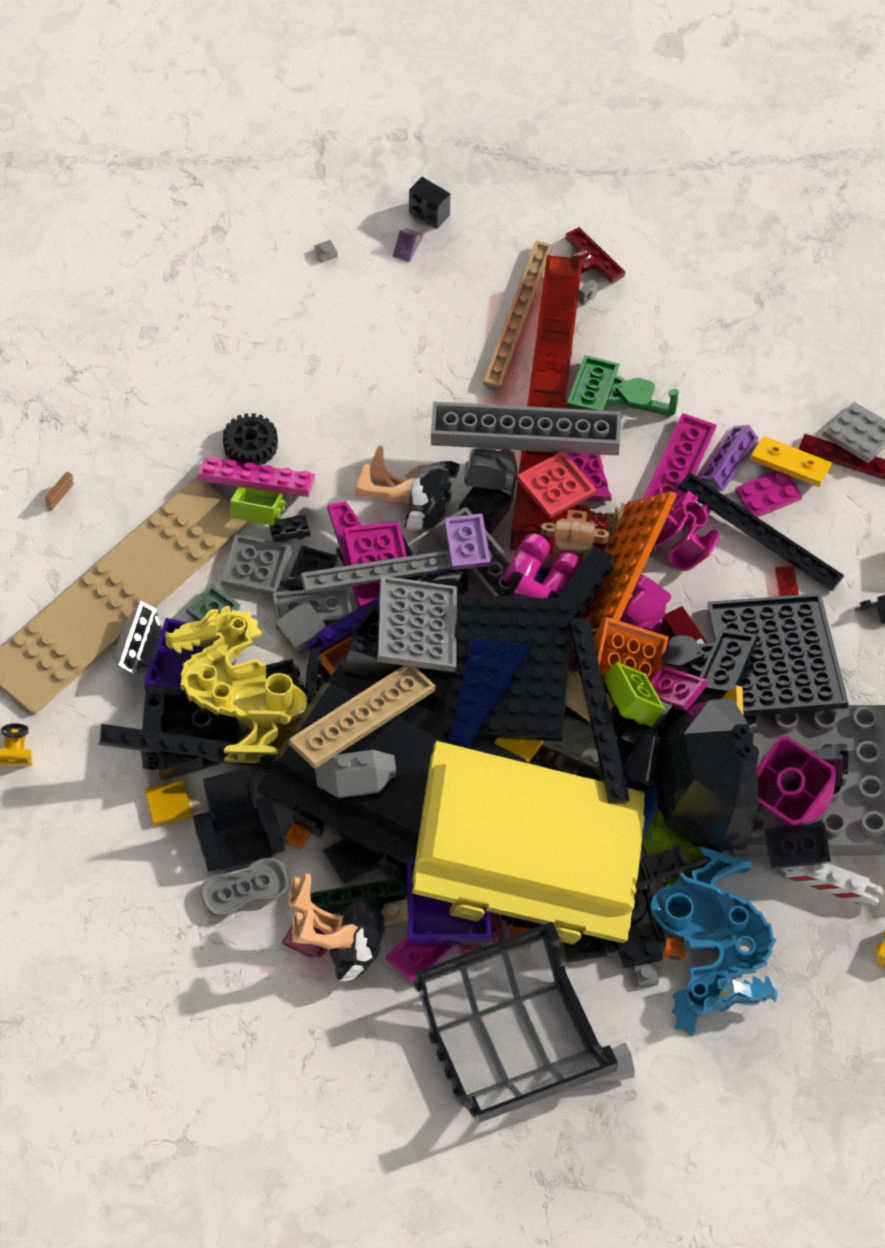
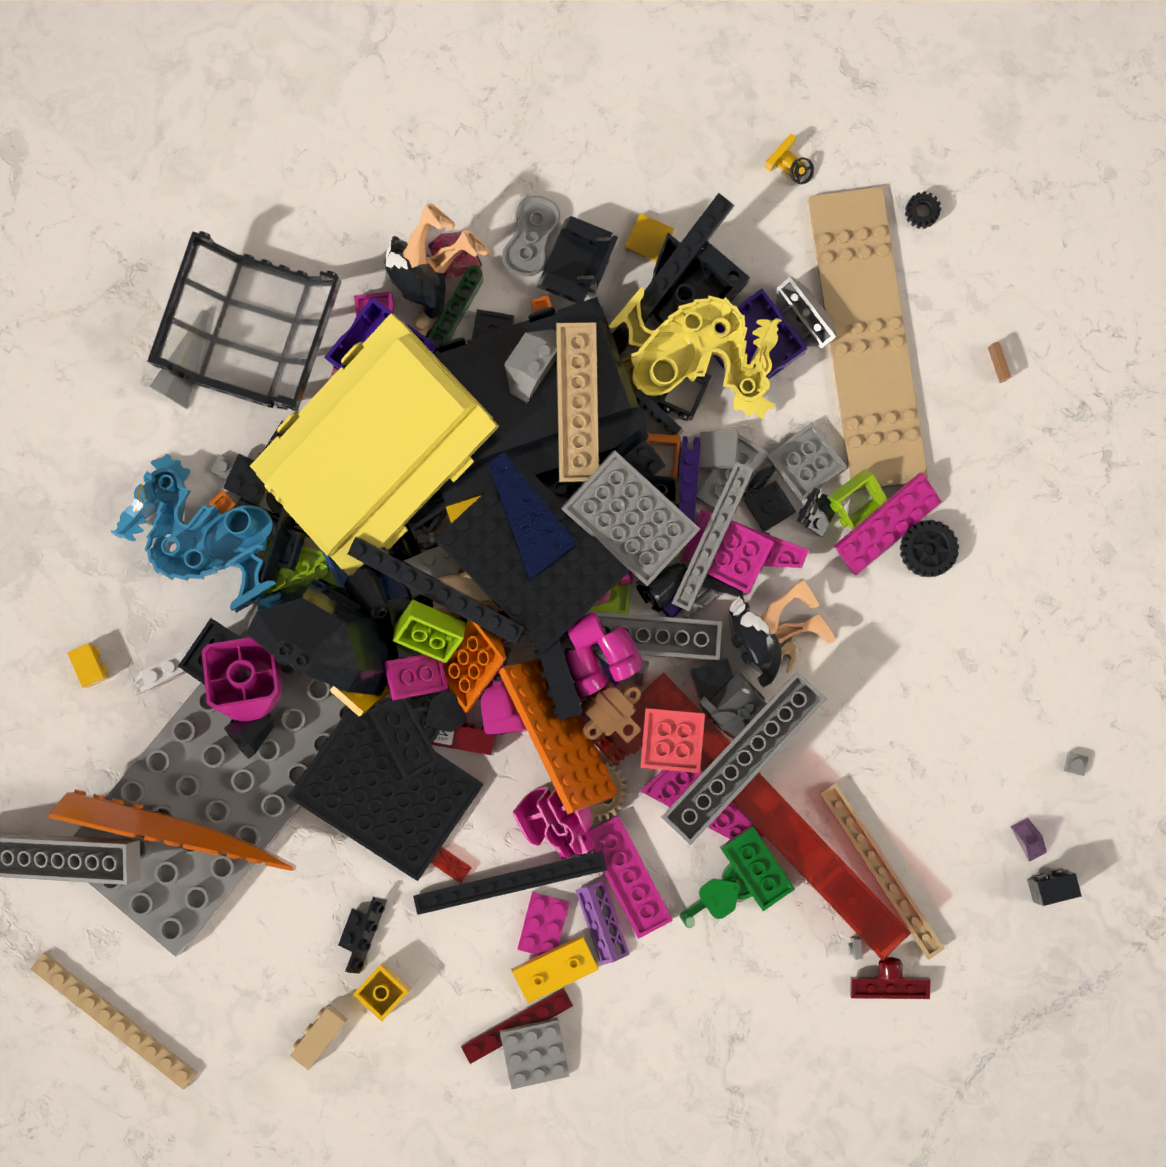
camera: 135 degrees right, 25 degrees up
(208, 600) = (792, 398): sand green plate -> none
(467, 541) = (682, 629): lavender plate -> none

